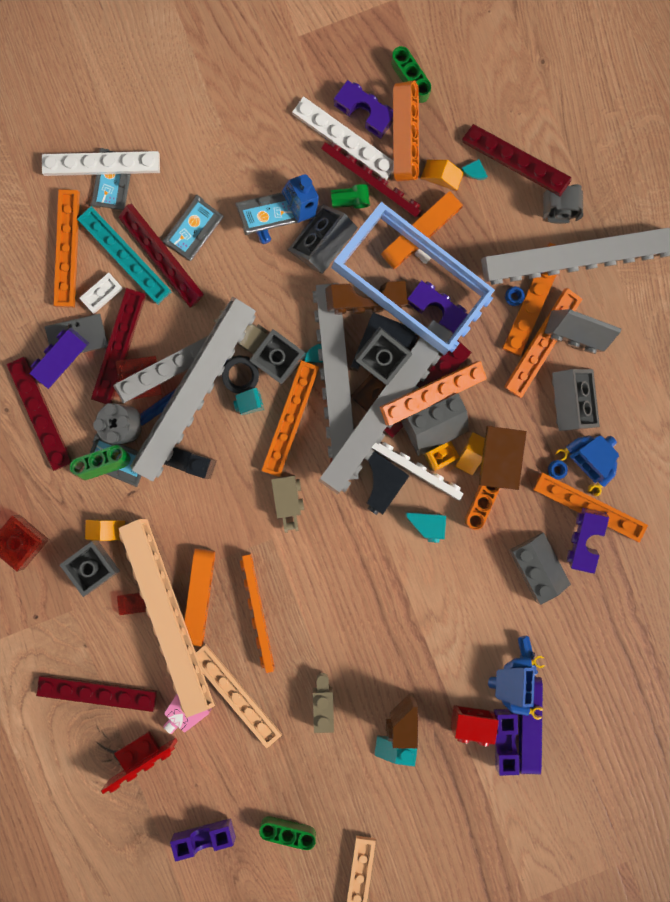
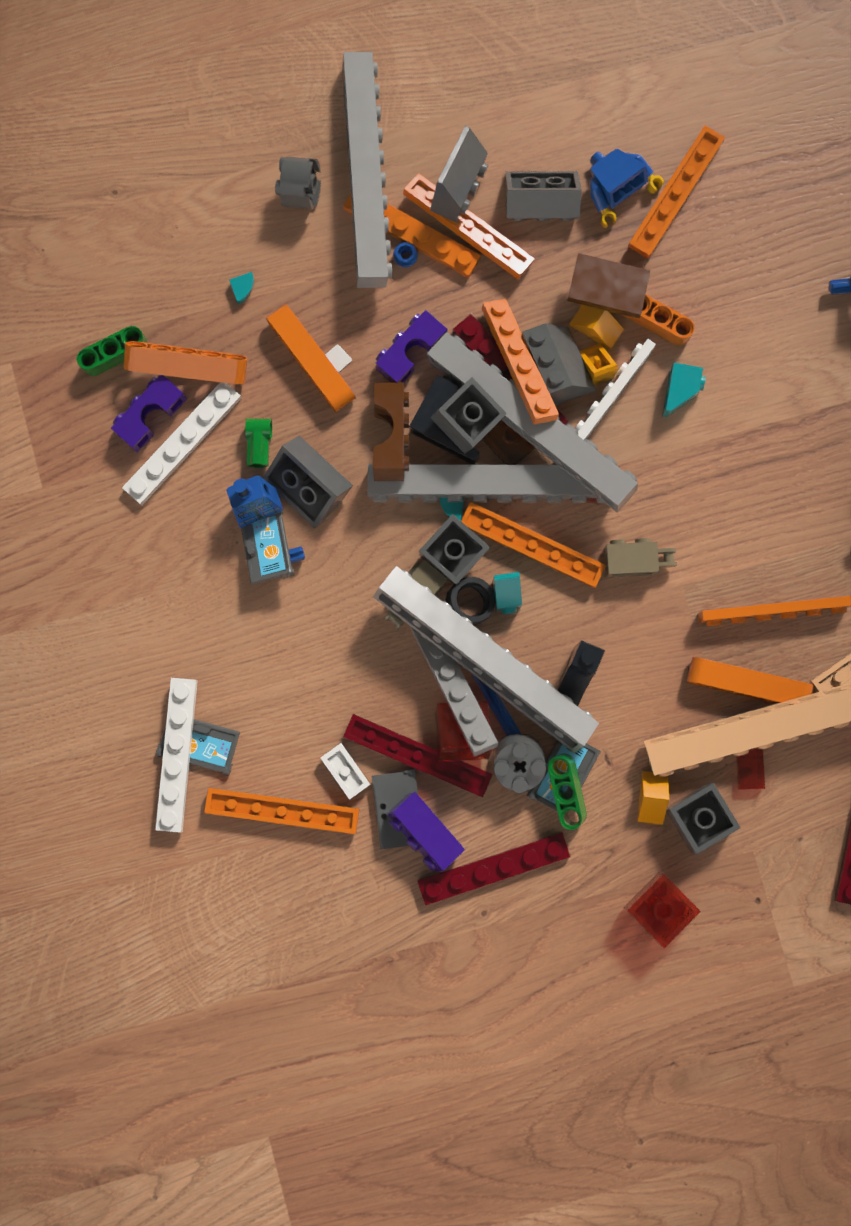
camera: 80 degrees left, 5 degrees down
(124, 255) = (299, 736): teal plate -> none
(160, 255) = (305, 688): dark red plate -> none
(194, 224) = (265, 639): door -> none
(366, 174) = (231, 419): dark red plate -> none
(386, 483) = (628, 435): black arch -> none
(432, 250) = (346, 337): light blue door -> none
(442, 173) = (241, 327): light orange slope -> none
(517, 160) = (238, 231): dark red plate -> none
(540, 568) = (747, 259): dark grey slope -> none
(563, 469) = (626, 219): blue plate -> none
(589, 523) = (699, 192): dark purple arch -> none

